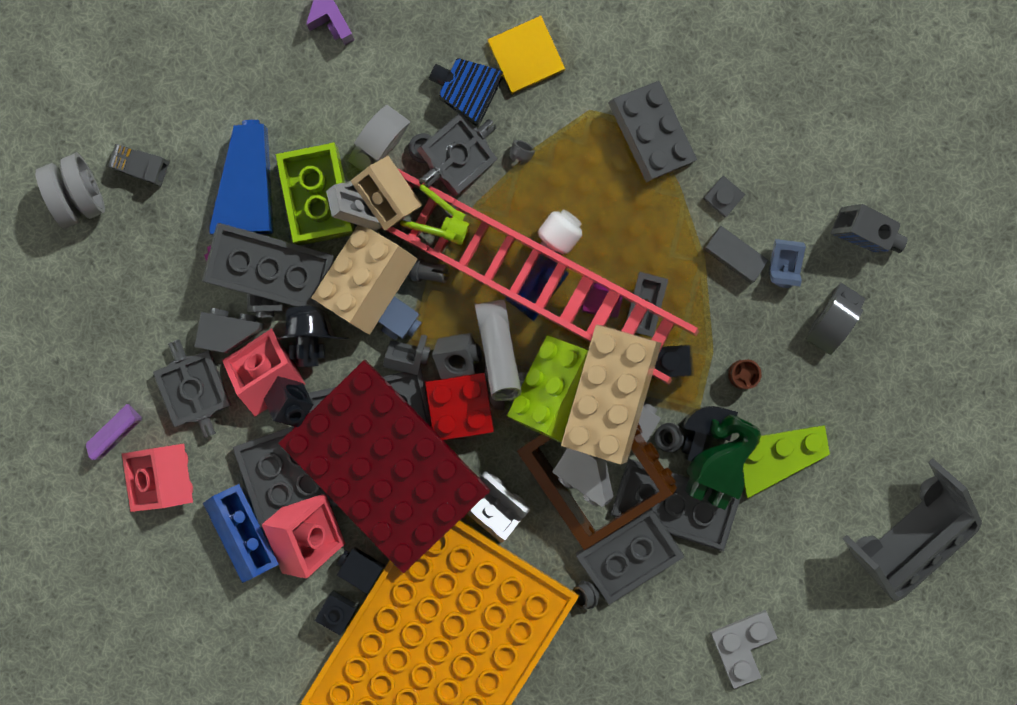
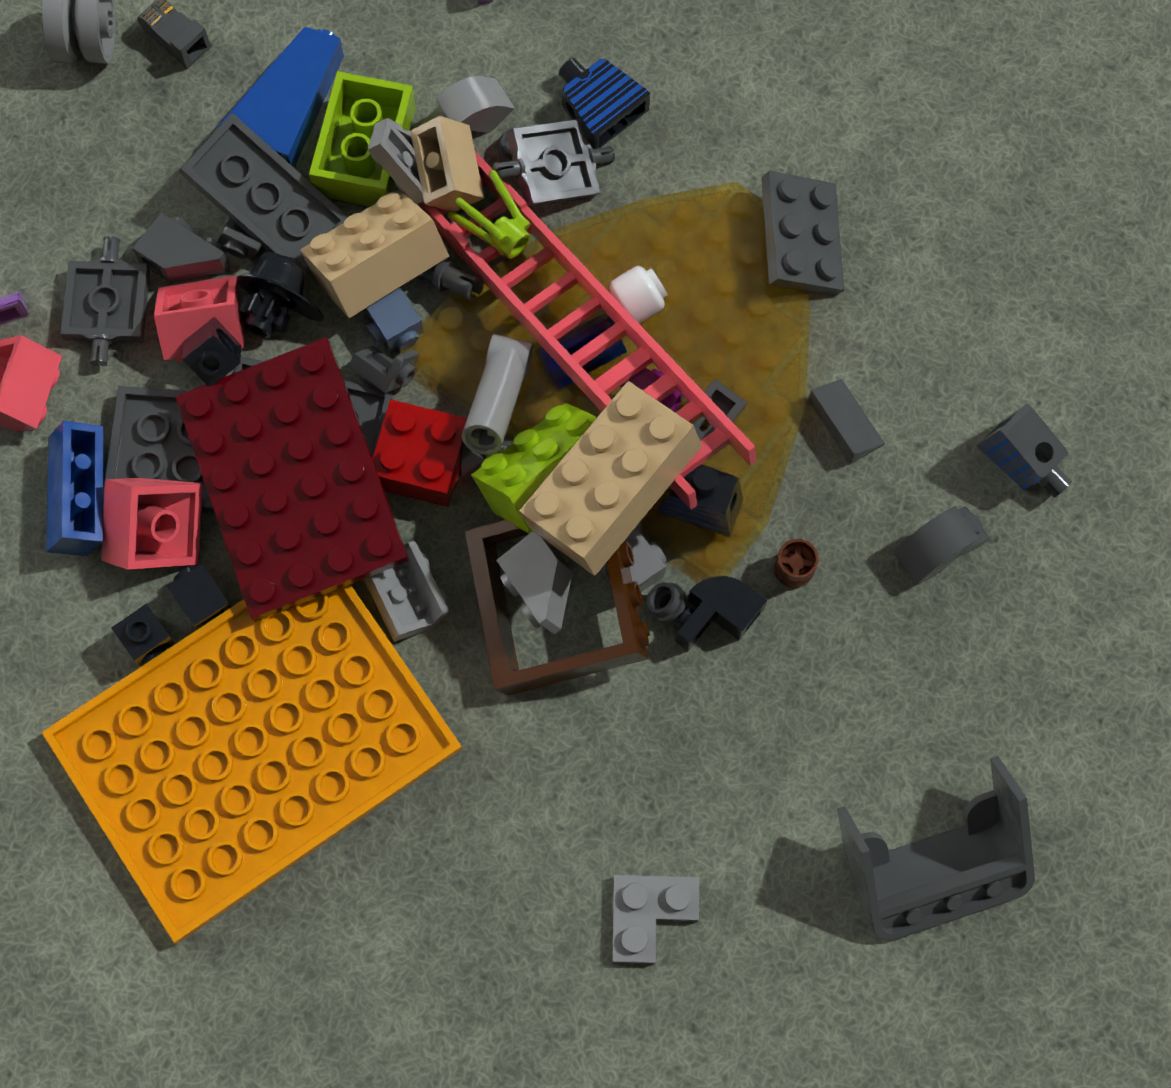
camera: 25 degrees right, 15 degrees down
(447, 358) = (429, 391): dark grey brick -> none
(521, 151) = (632, 195): dark grey hinge -> none
(526, 54) = (687, 95): yellow tile -> none
(588, 595) = (474, 755): dark grey plate -> none
(630, 556) = (551, 724): dark grey plate -> none
(680, 512) = (646, 699): dark grey tile -> none
(723, 464) = (721, 652): dark green hips -> none
(724, 196) = (859, 346): dark grey plate -> none
(782, 456) = (798, 685): lime wing -> none
(786, 263) = (906, 452): sand blue bracket -> none

